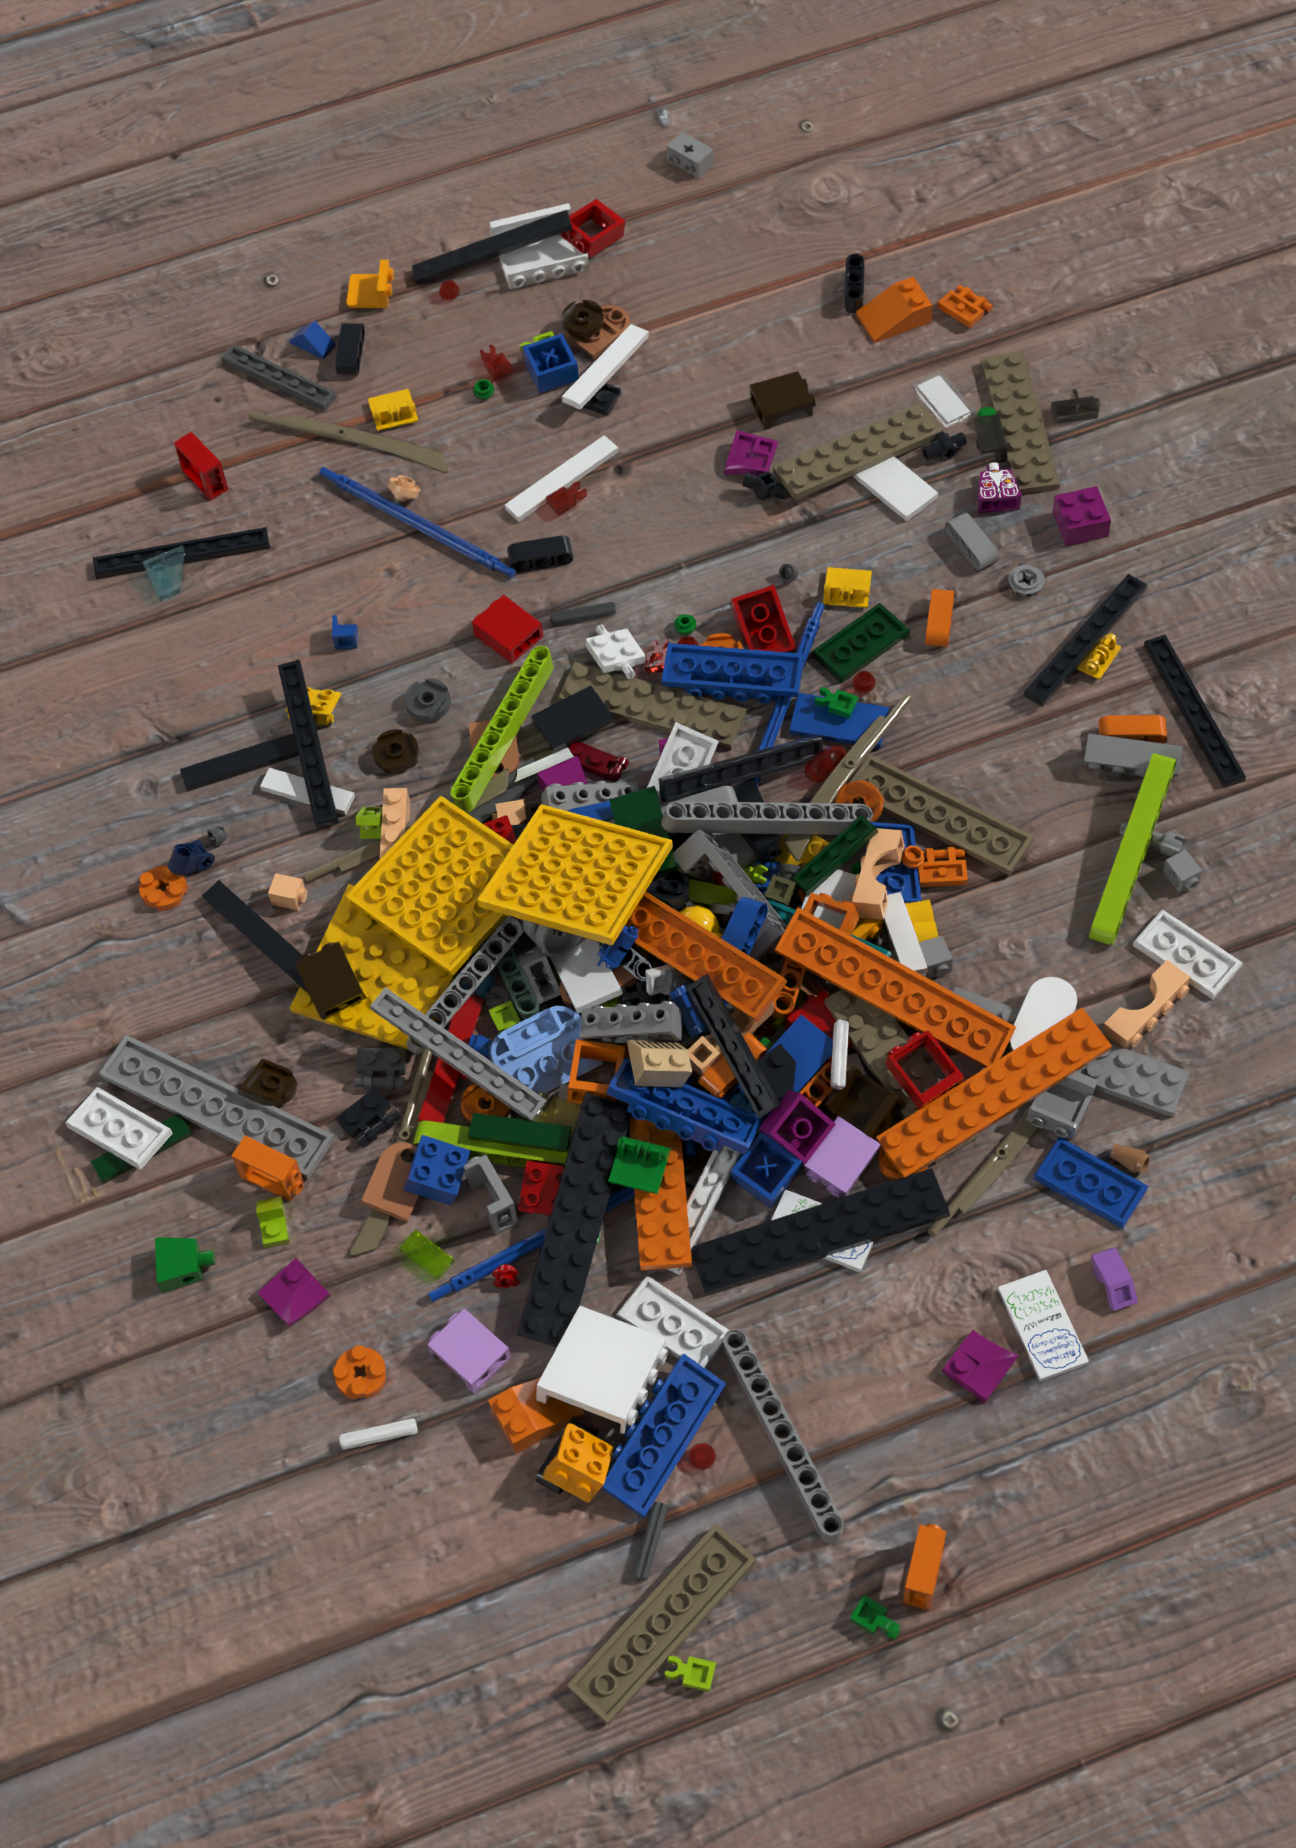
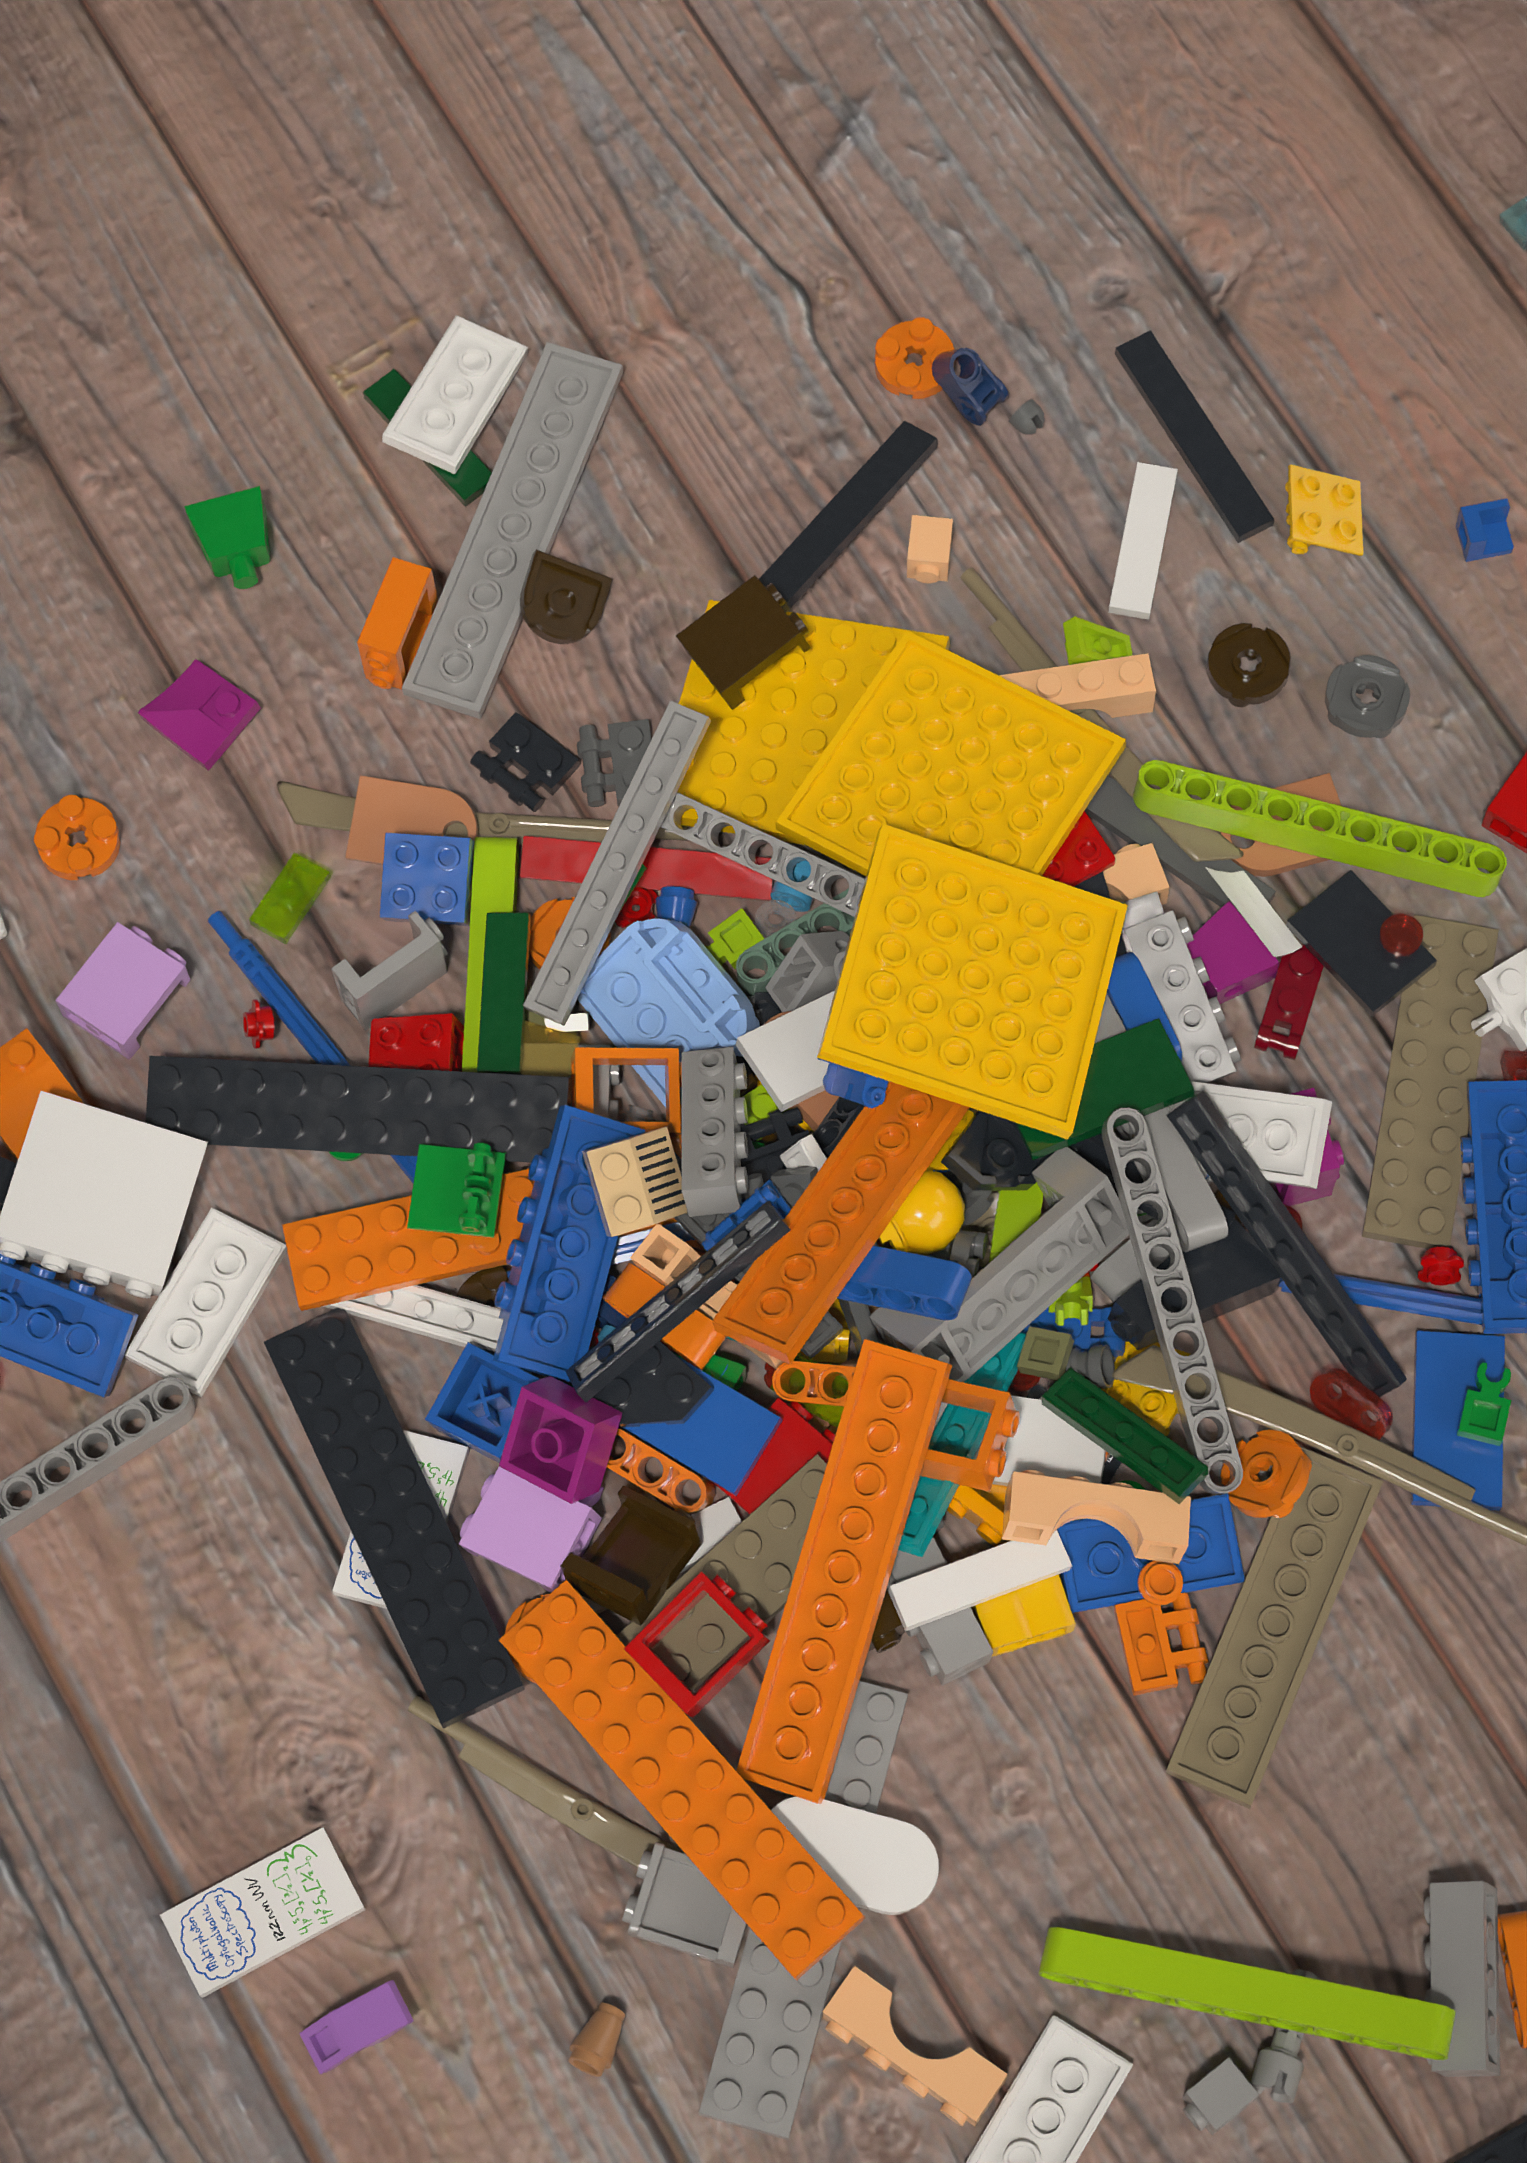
camera: 80 degrees right, 10 degrees up
(272, 1222) = (322, 657): lime slope -> none
(308, 744) = (1227, 515): black tile -> none
(575, 696) = (1401, 934): none -> clear red plate
(756, 713) = (1440, 1266): none -> red plate
(839, 1054) = (710, 1494): white axle -> none
(979, 1365) = (178, 1809): magenta plate -> none
(1090, 1182) = (546, 1974): blue tile -> none

